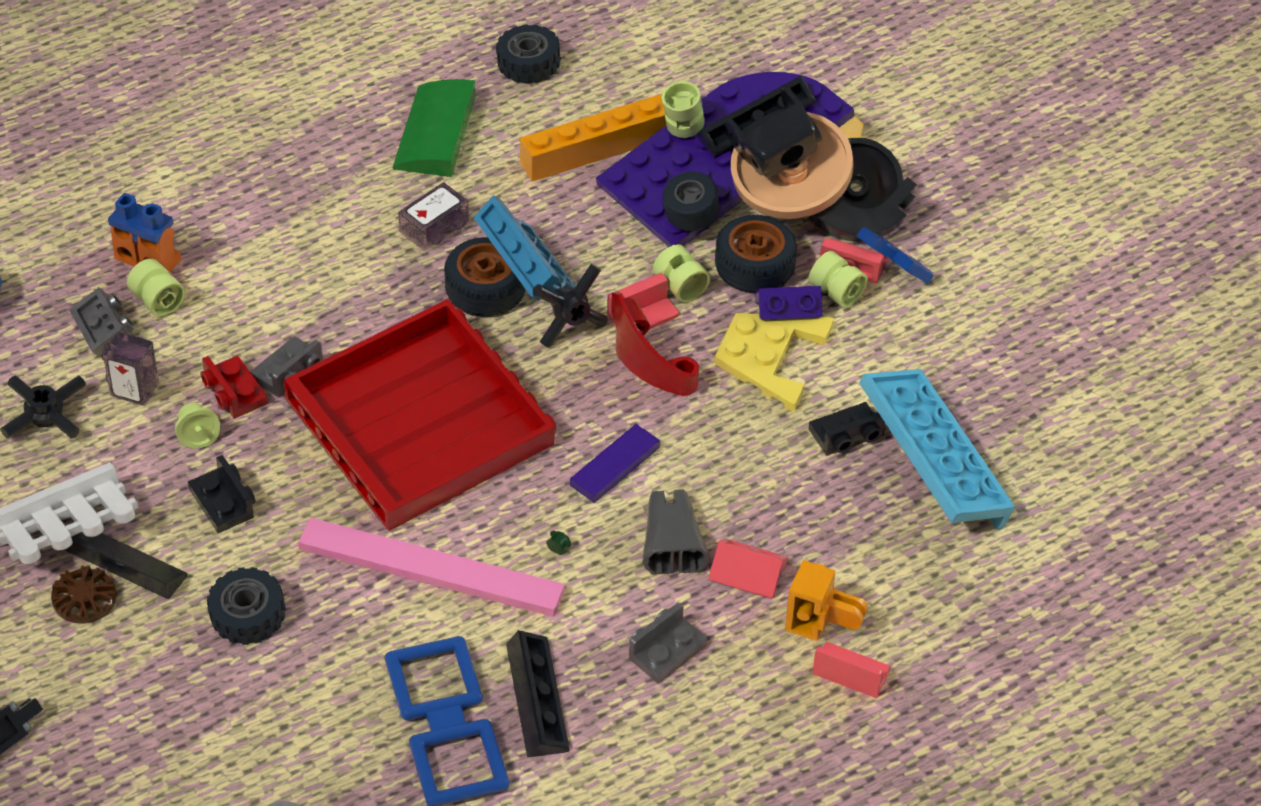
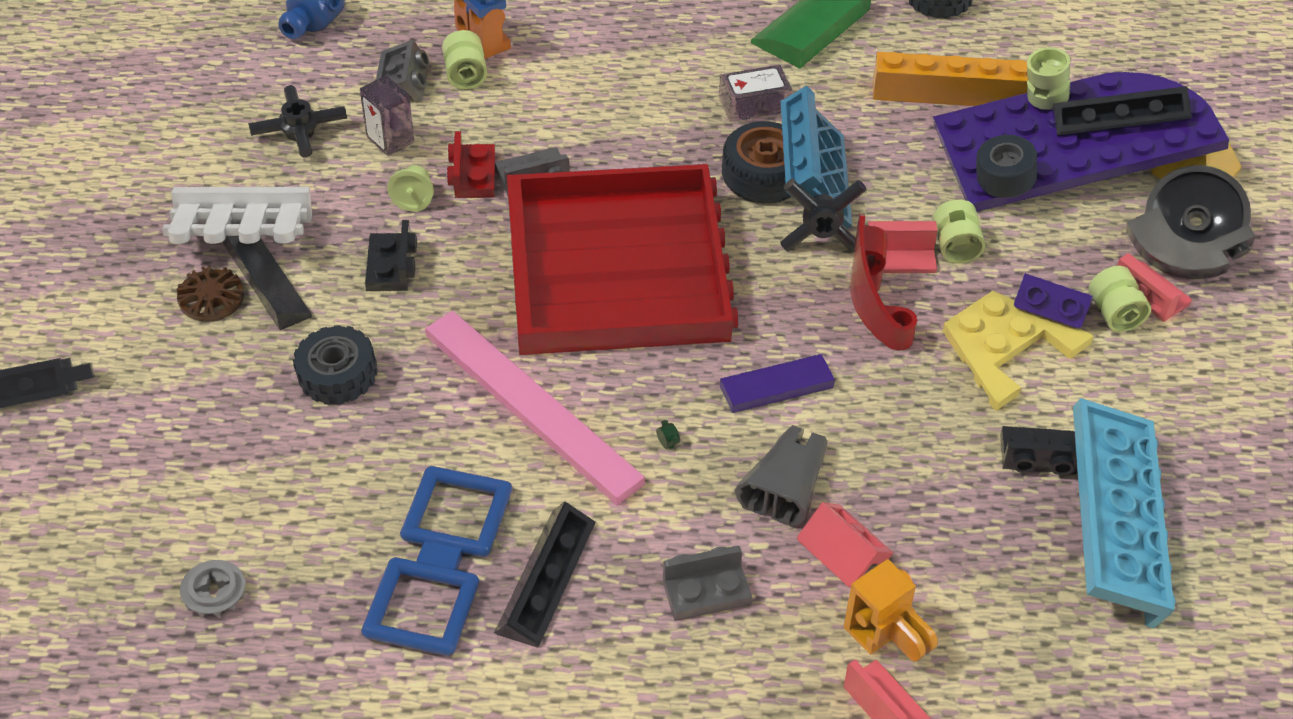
camera: 30 degrees right, 0 degrees up
(755, 253) = (1048, 241): black wheel -> none
(776, 138) = (1123, 134): black piece -> none
(804, 186) = (1129, 168): light nougat dish -> none
(888, 249) = (1189, 287): blue tile -> none

